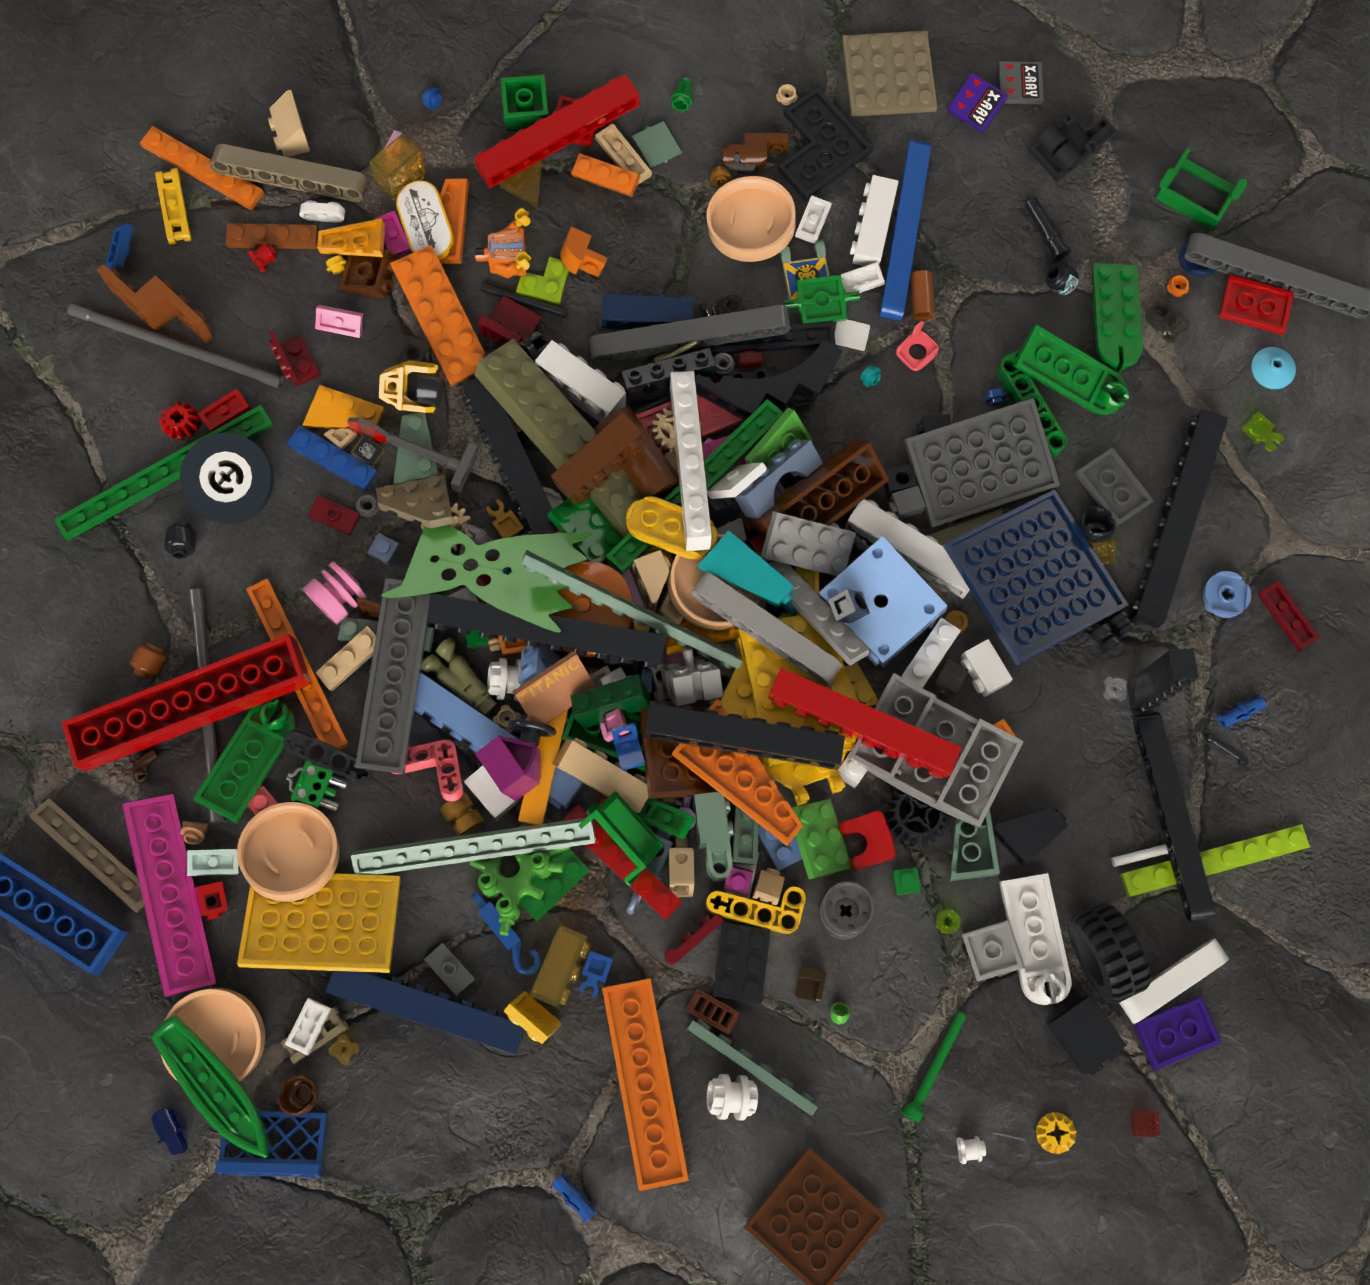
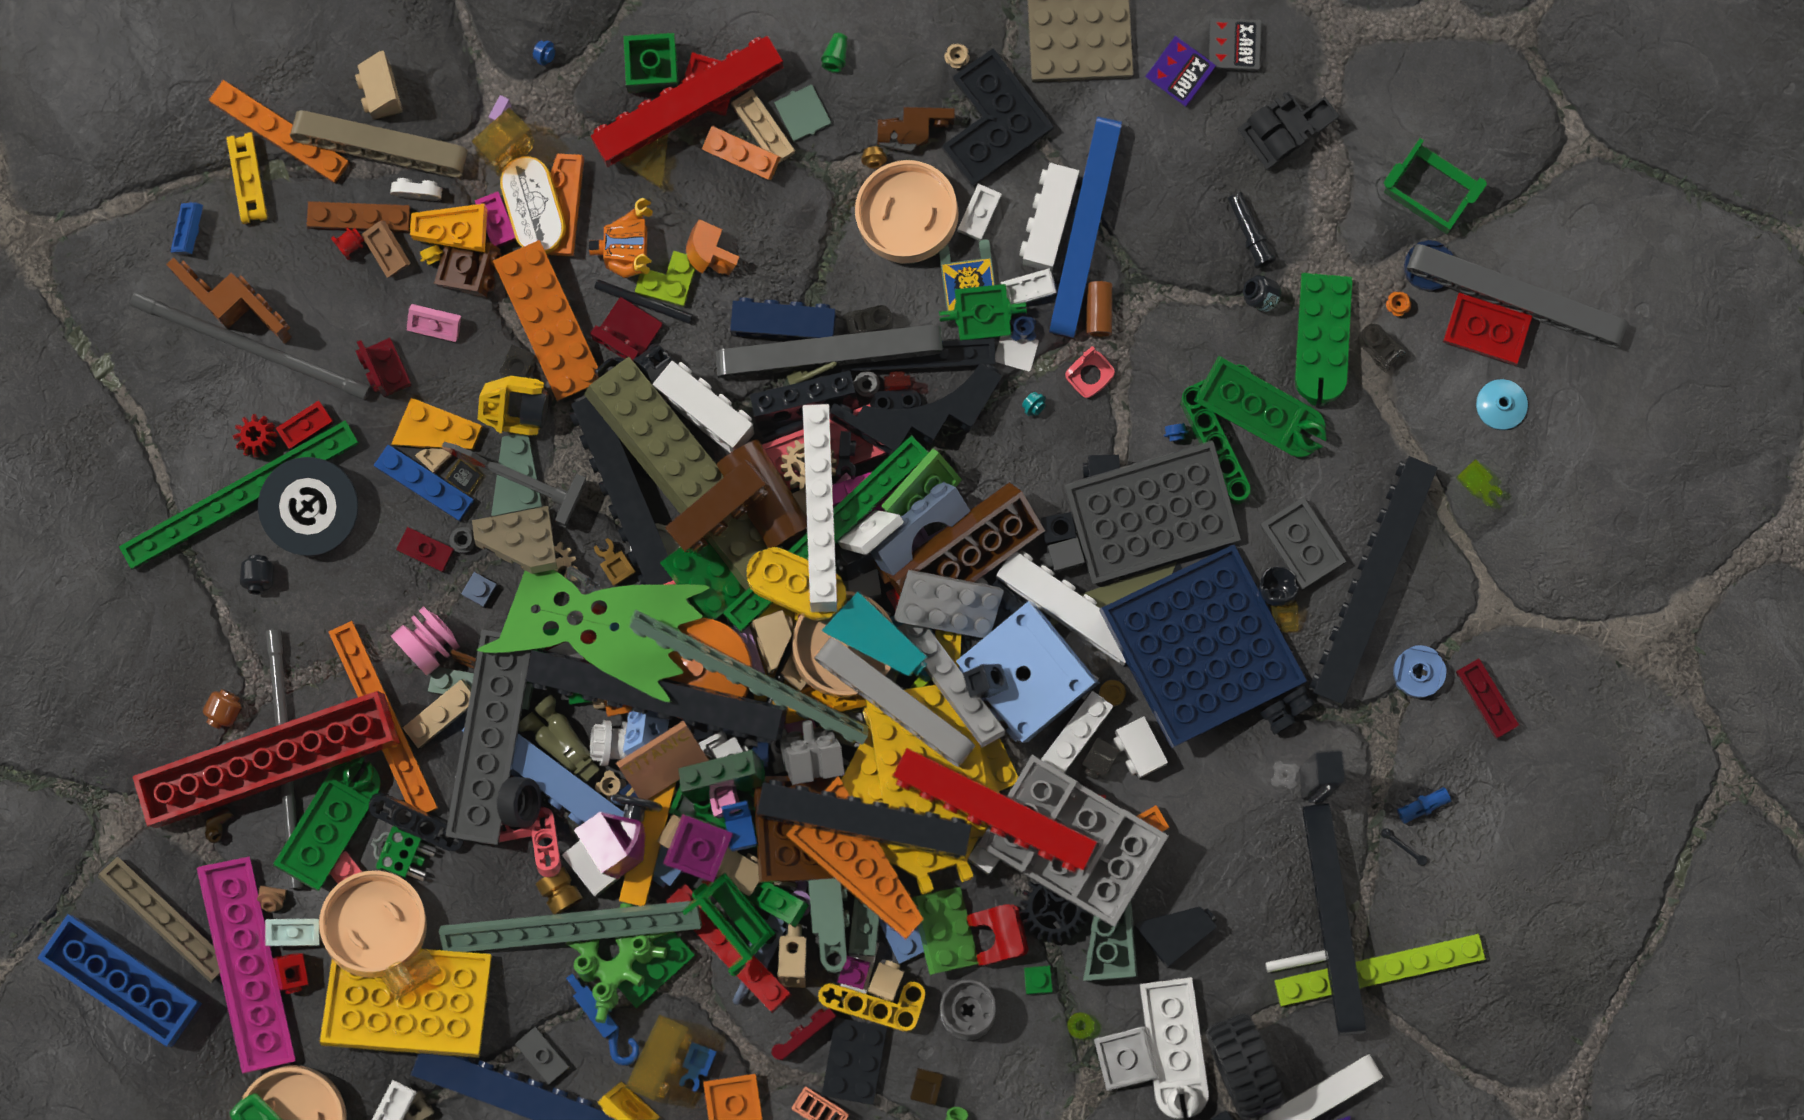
camera: 10 degrees right, 5 degrees up
(295, 260) = (385, 249): none -> medium nougat plate
(319, 899) = (407, 976): none -> clear yellow plate
(433, 733) = (508, 802): none -> black tyre
(590, 767) = (698, 848): none -> magenta plate
(709, 415) = (847, 449): none -> black plate
(859, 309) = (1026, 322): none -> dark blue plate

